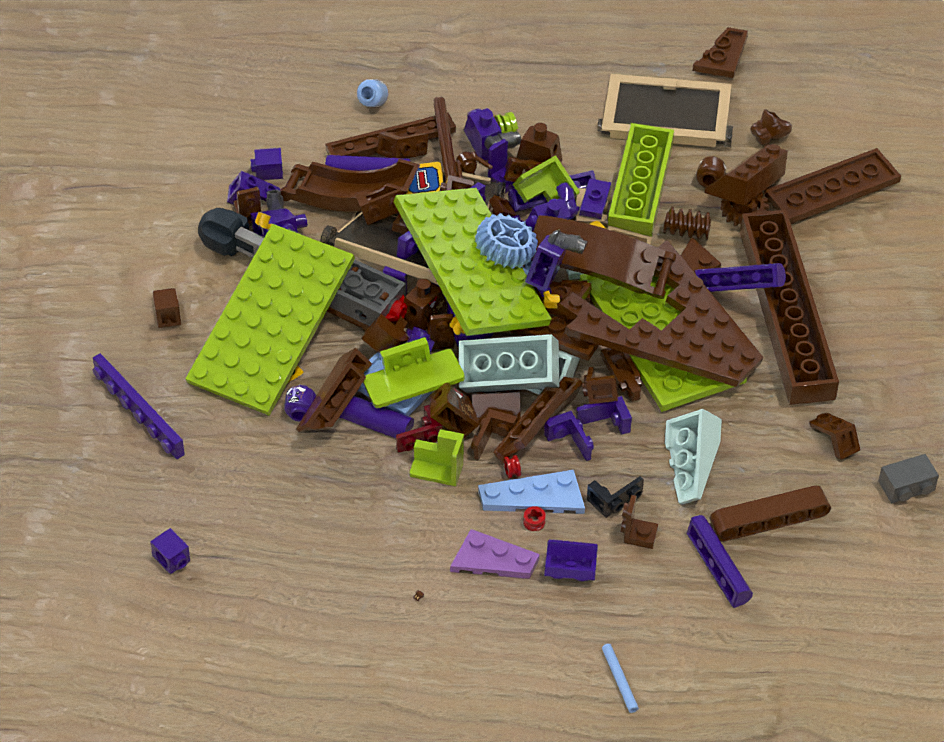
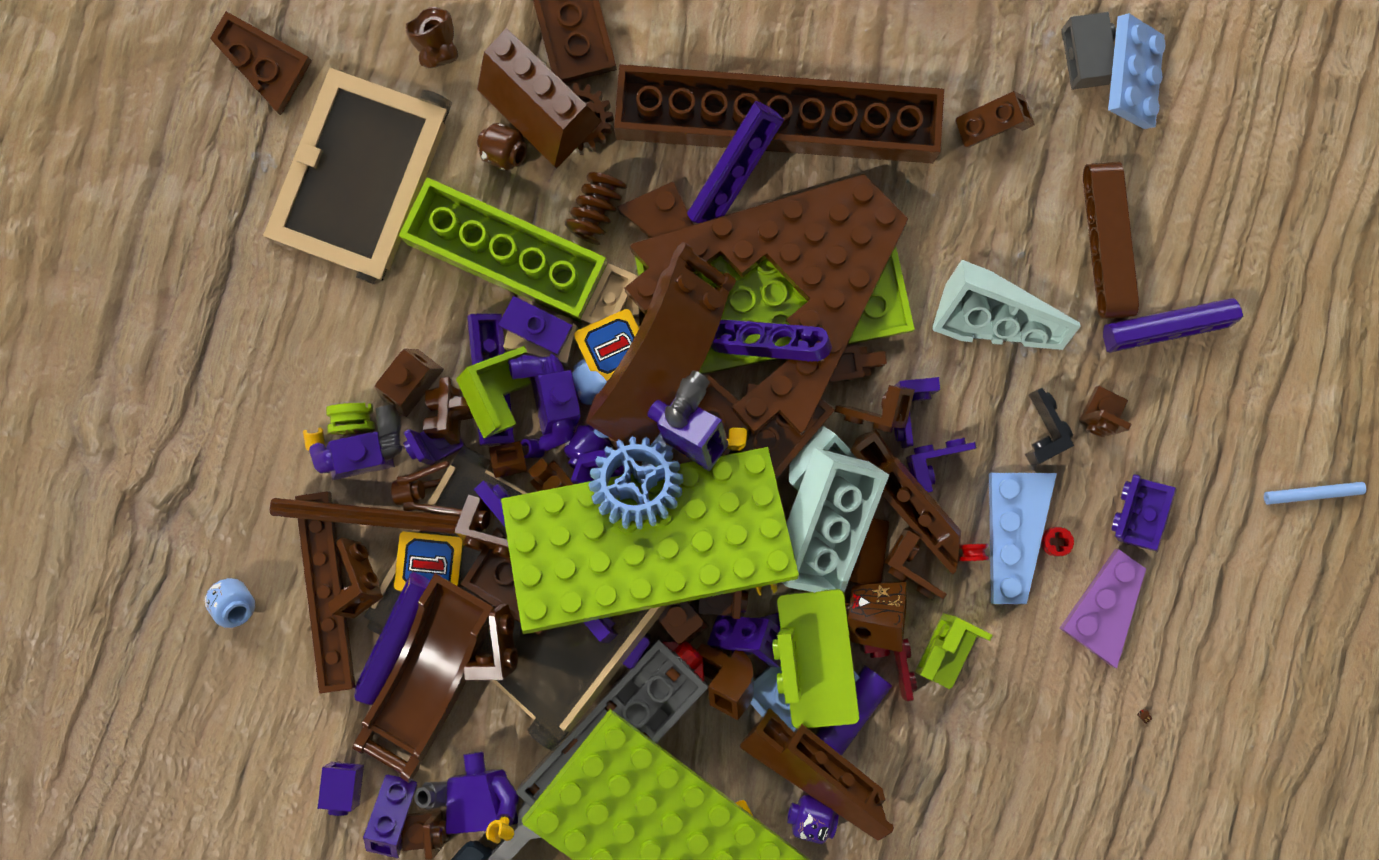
camera: 80 degrees left, 35 degrees up
(625, 309) = (769, 335): none -> dark purple beam
(902, 503) = (1136, 71): none -> light blue plate

